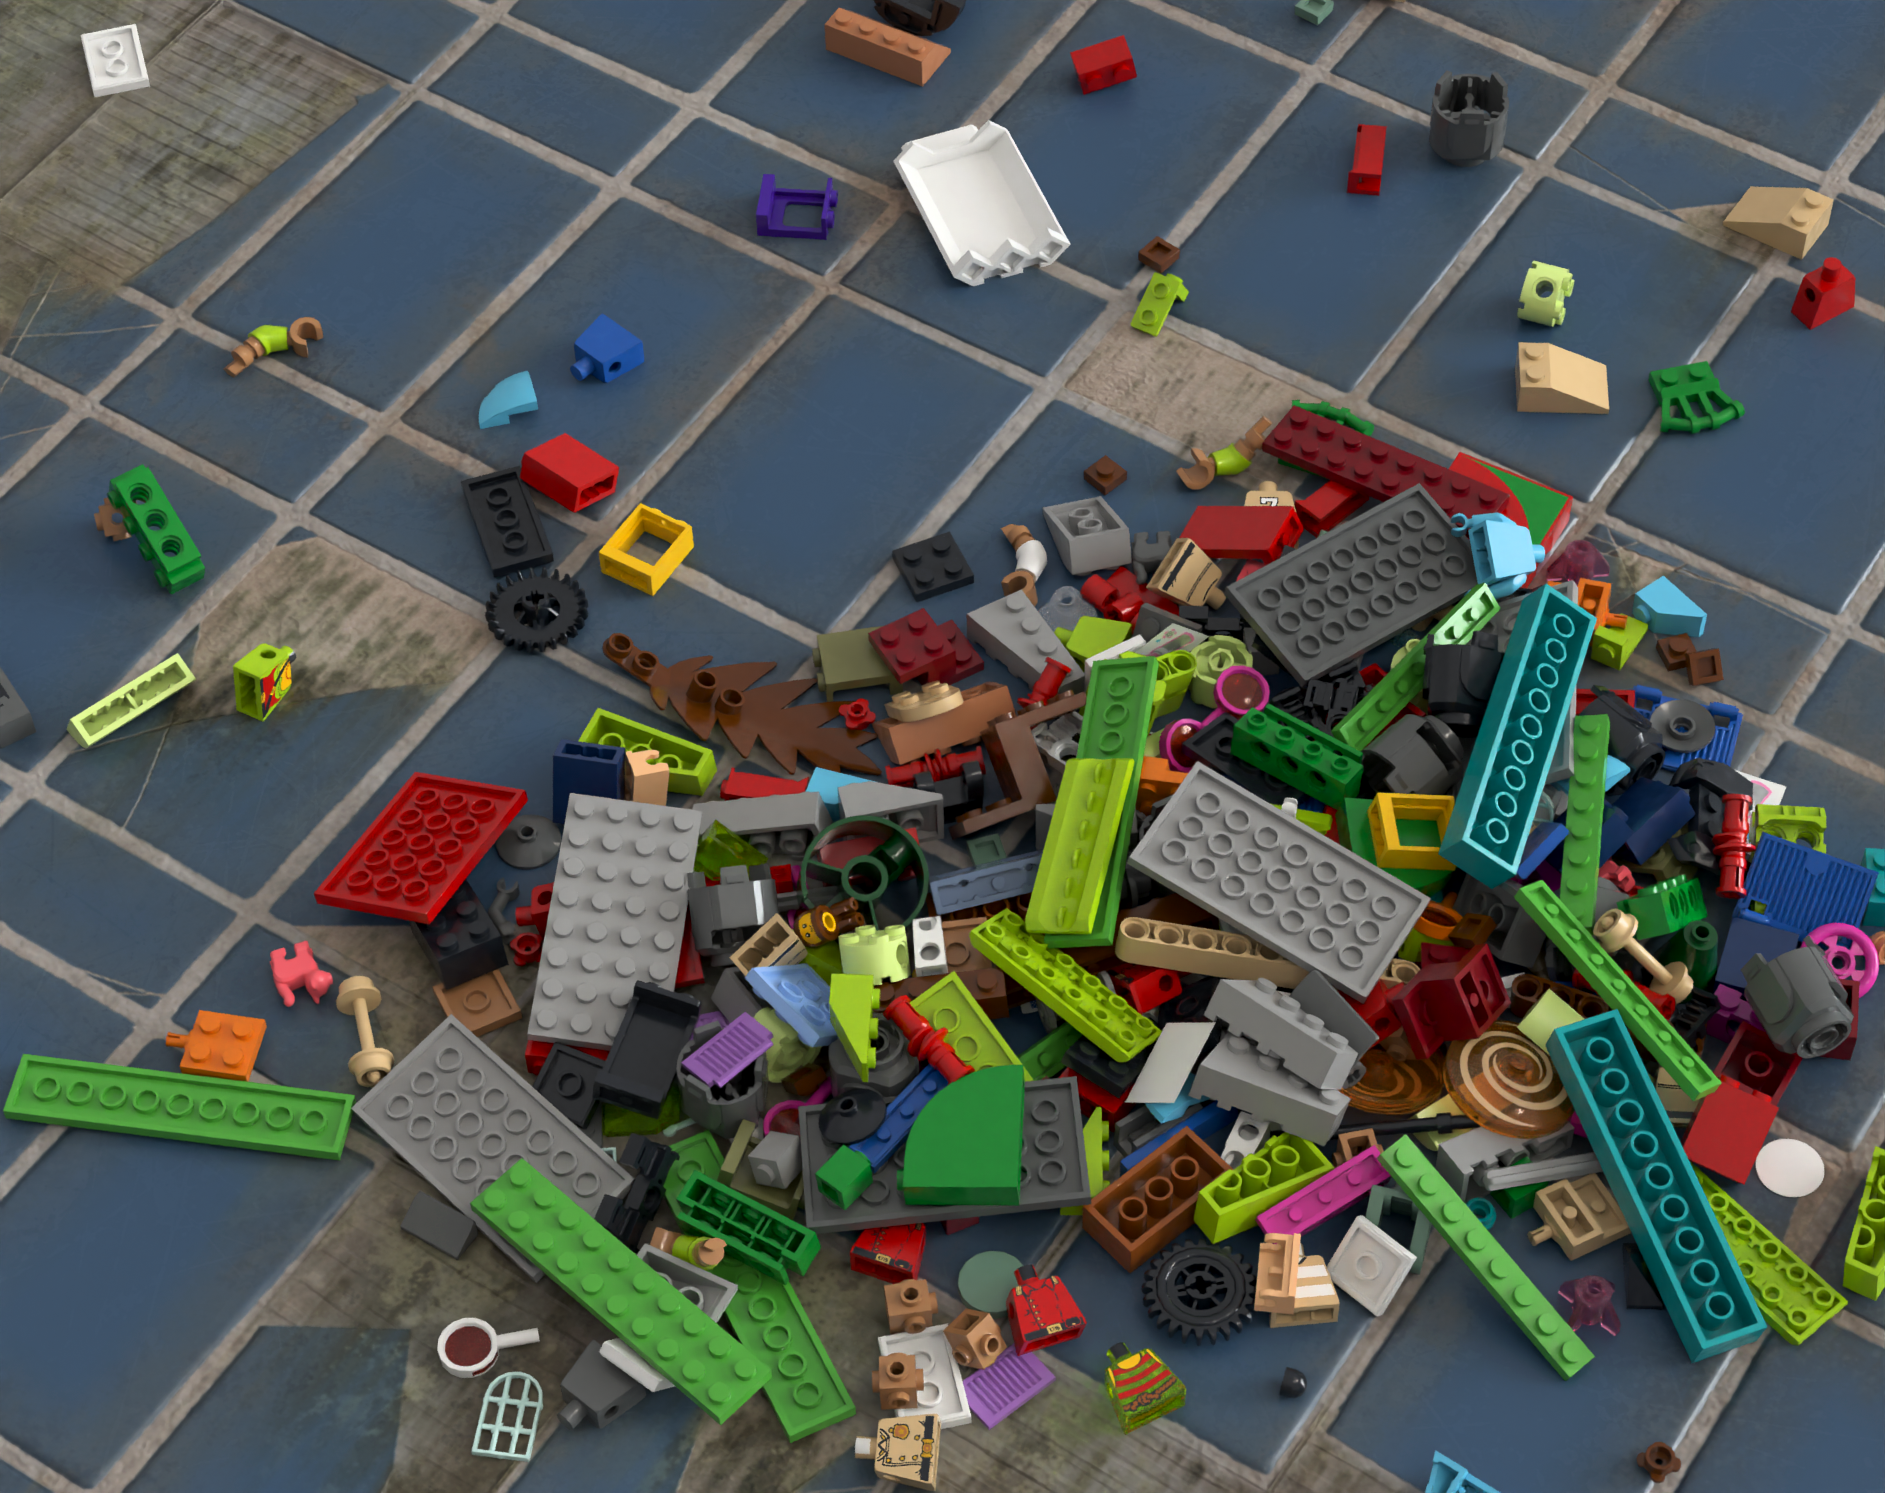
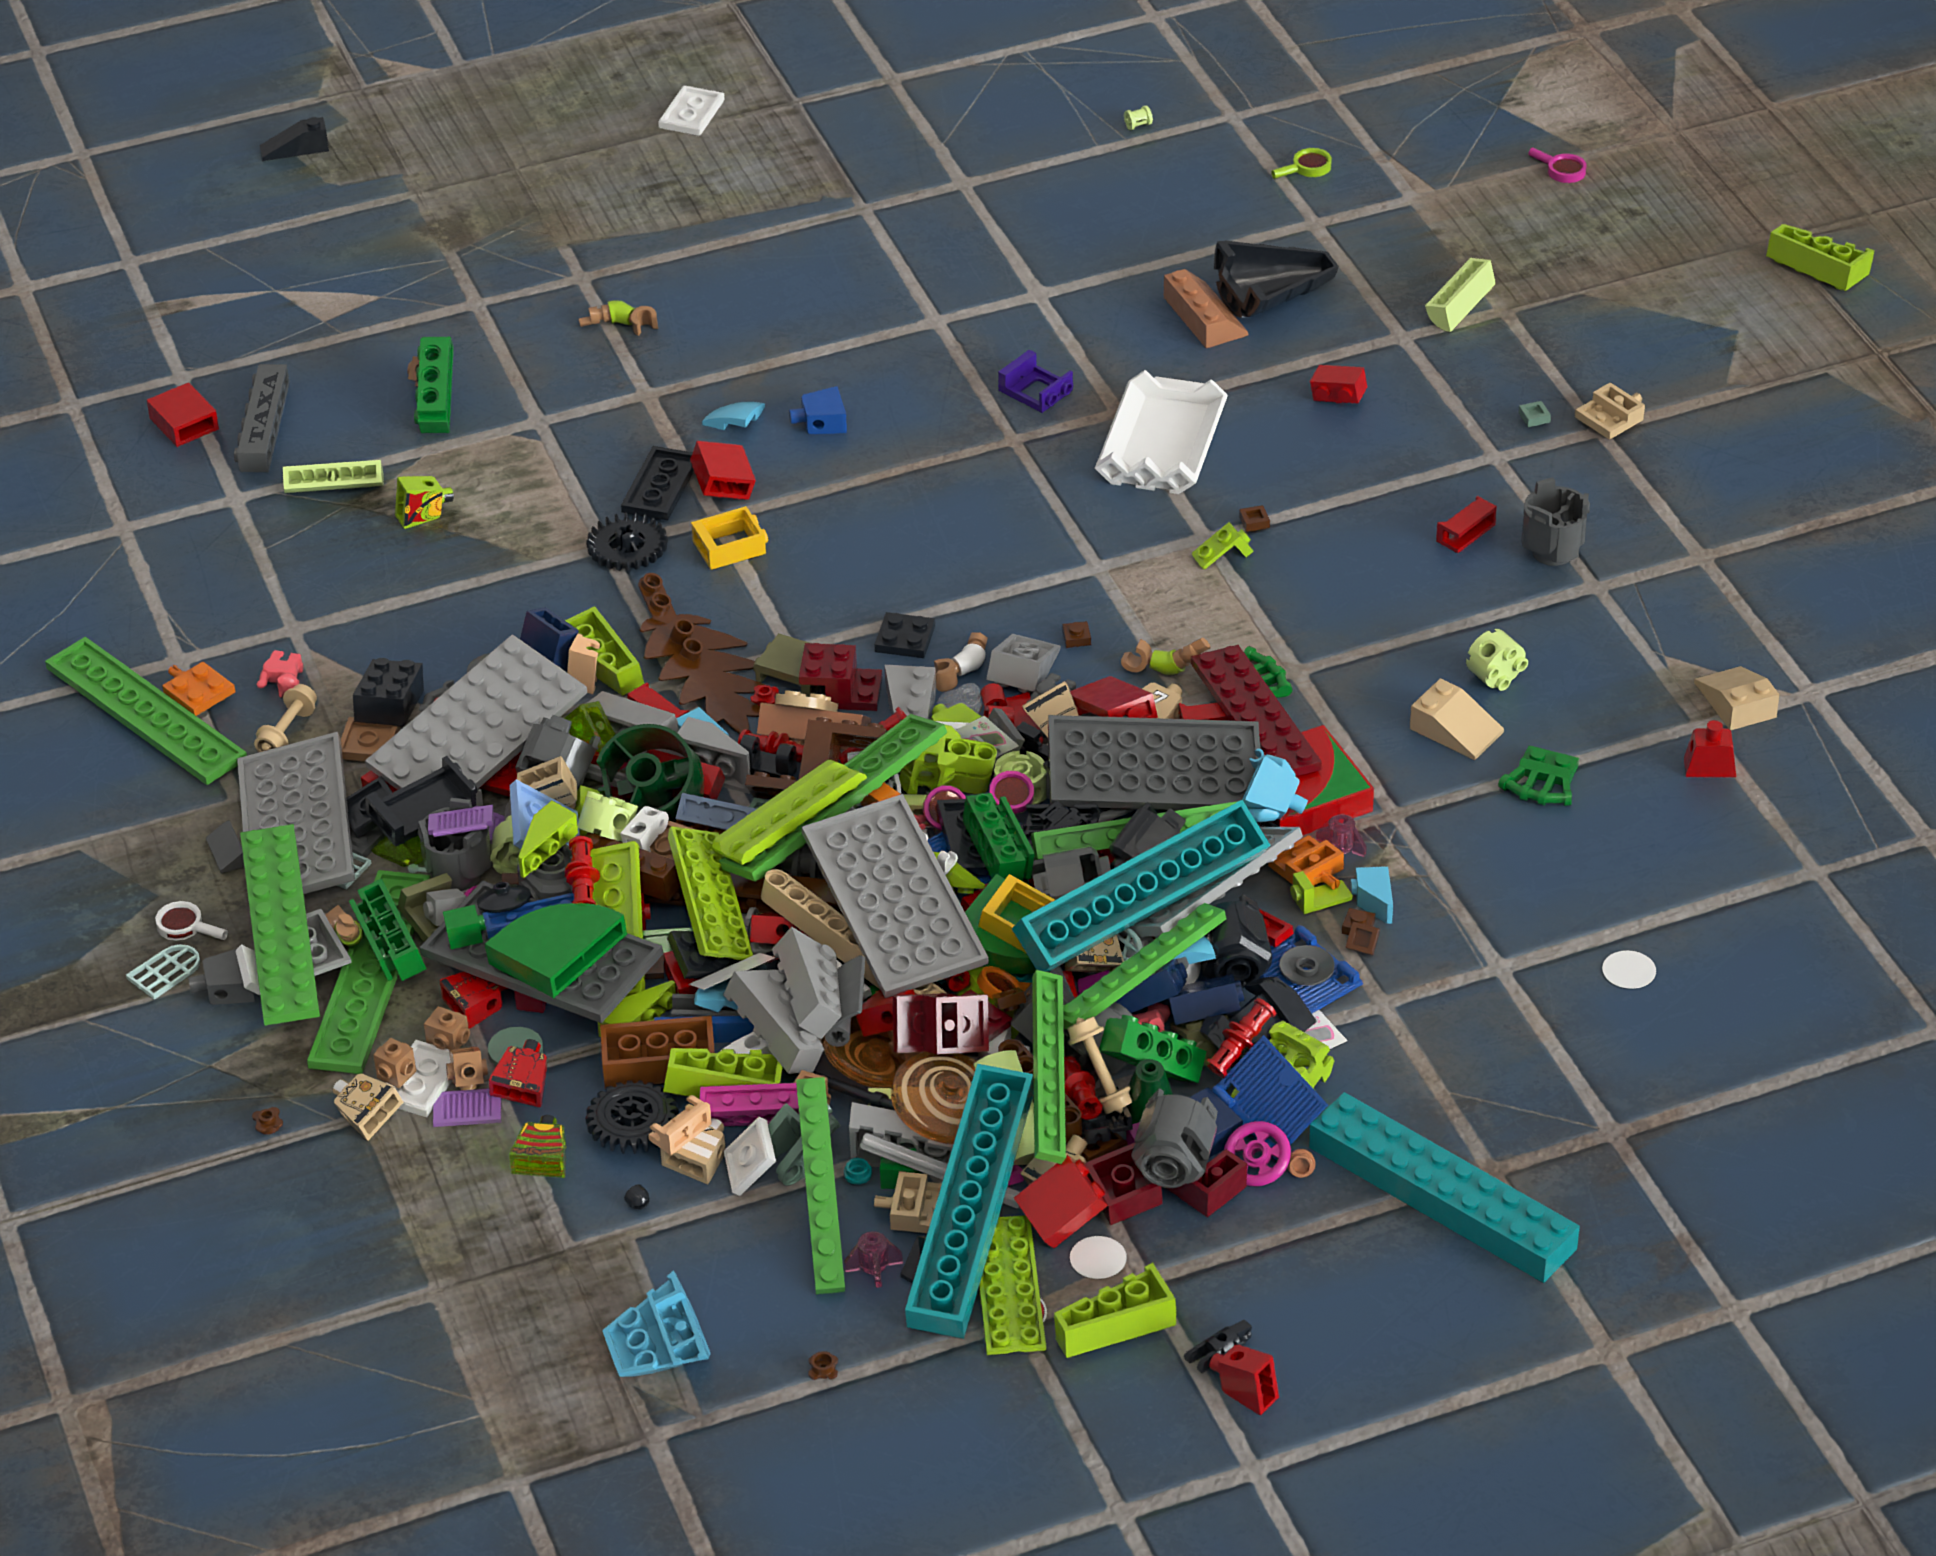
camera: 35 degrees right, 10 degrees down
(421, 847) = (413, 633): red plate -> none
(631, 1219) = (369, 872): black piece -> none
(823, 924) = (600, 783): reddish brown piece -> none
(1539, 846) = (1093, 970): blue tile -> none

